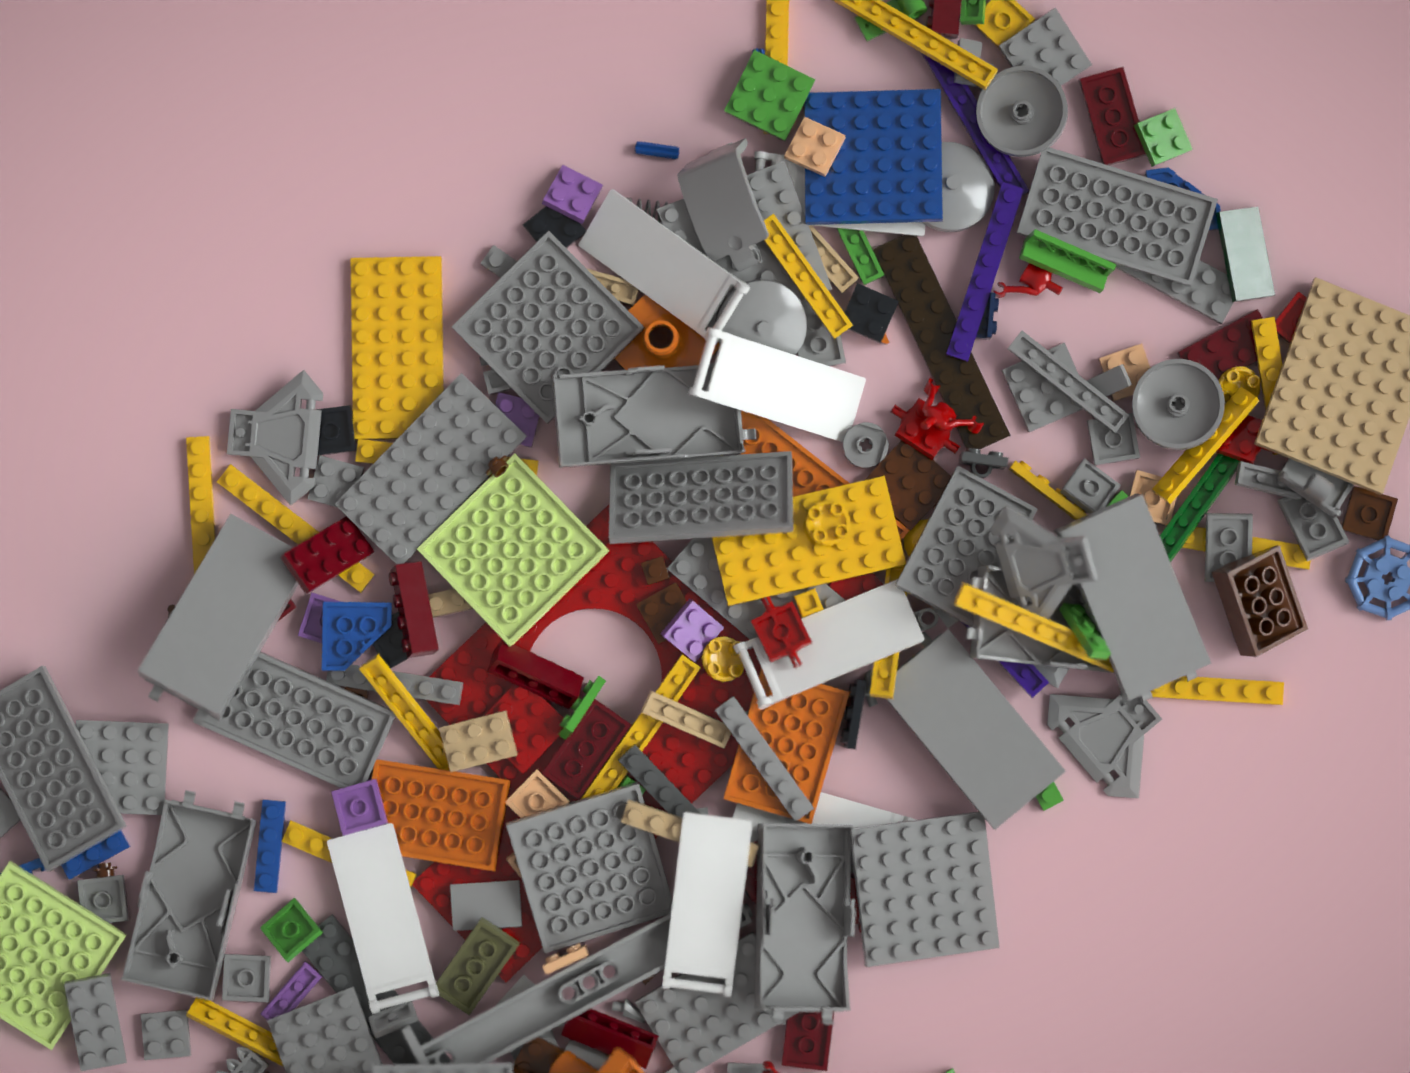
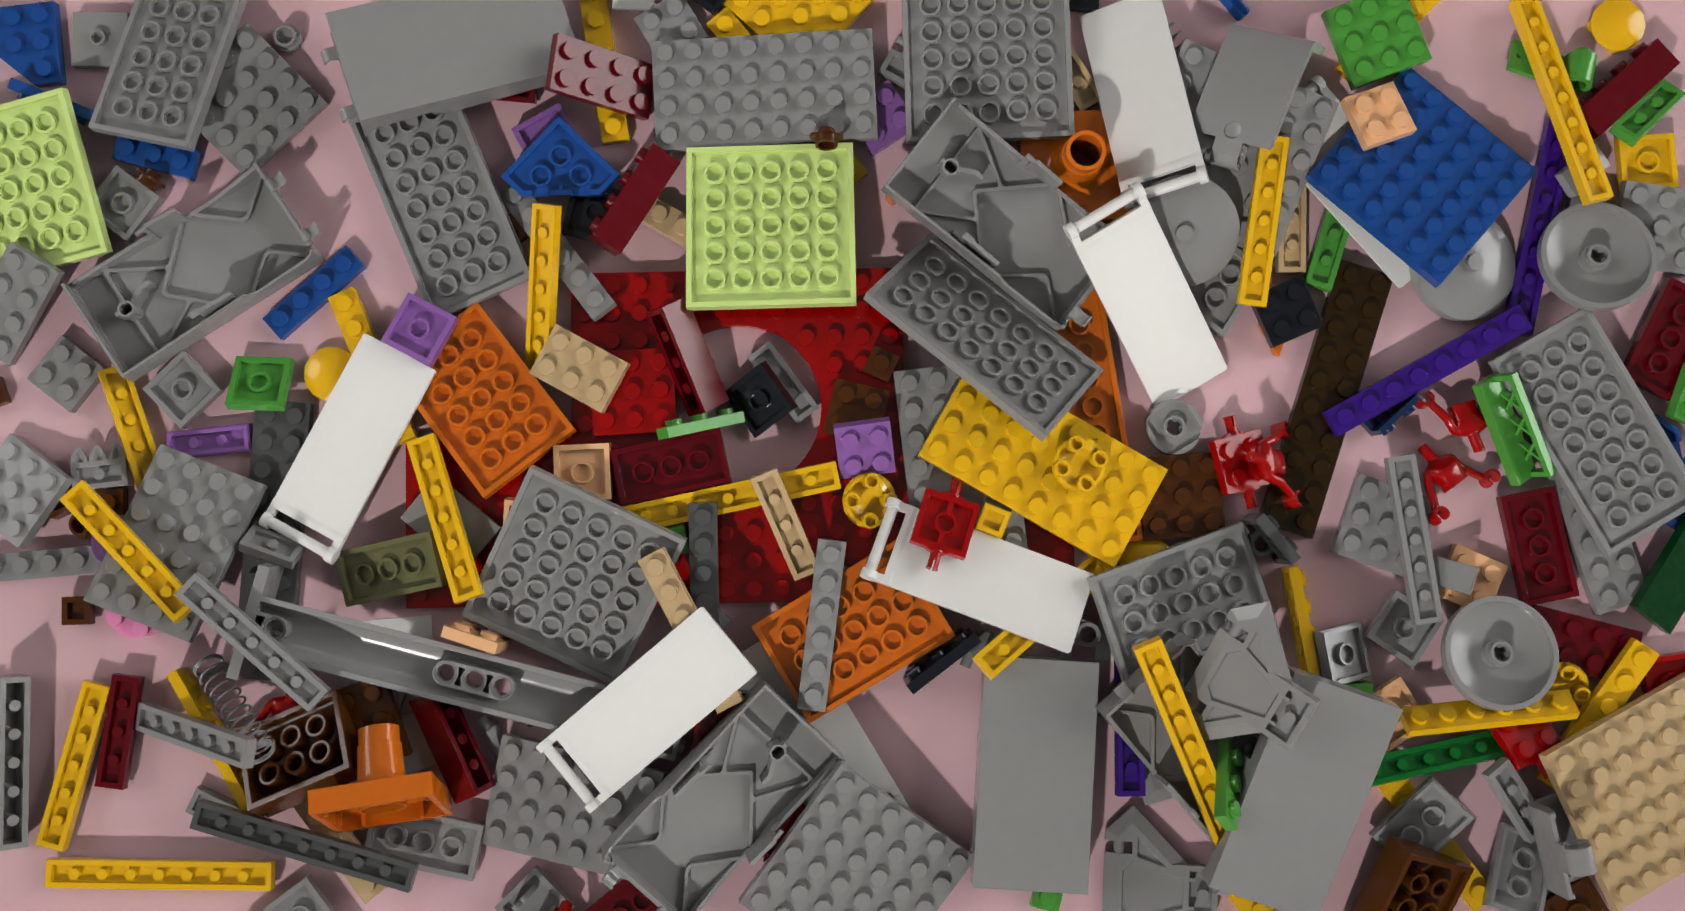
camera: 45 degrees right, 0 degrees up
(106, 707) = (287, 38): none -> light grey plate
(322, 886) = (324, 370): none -> yellow dish
(482, 904) = (445, 518): none -> yellow plate
(602, 658) = (761, 399): none -> black plate
(606, 636) = (802, 398): none -> light grey plate
(1054, 321) = (1447, 473): none -> red piece
(1148, 315) = (1537, 546): none -> dark red plate

